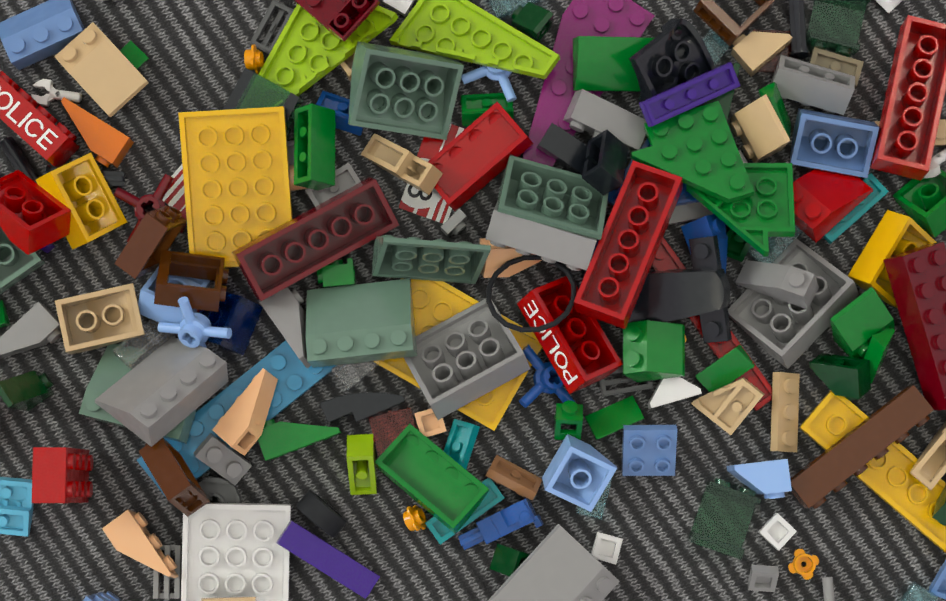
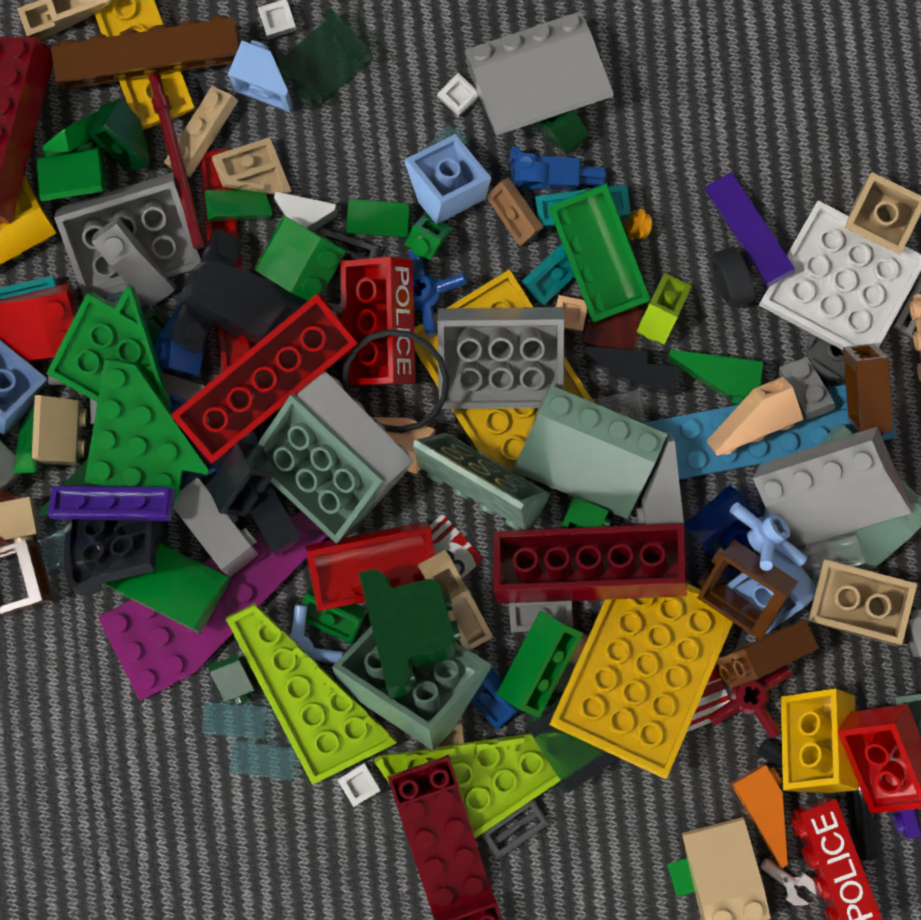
camera: 145 degrees left, 0 degrees up
(253, 59) = (553, 801): light orange plate -> none
(423, 118) = (408, 627): none -> dark green brick
(454, 224) = (433, 506): light grey plate -> none
(649, 450) = (361, 165): medium blue plate -> none
(824, 413) = (162, 107): none -> dark red bar

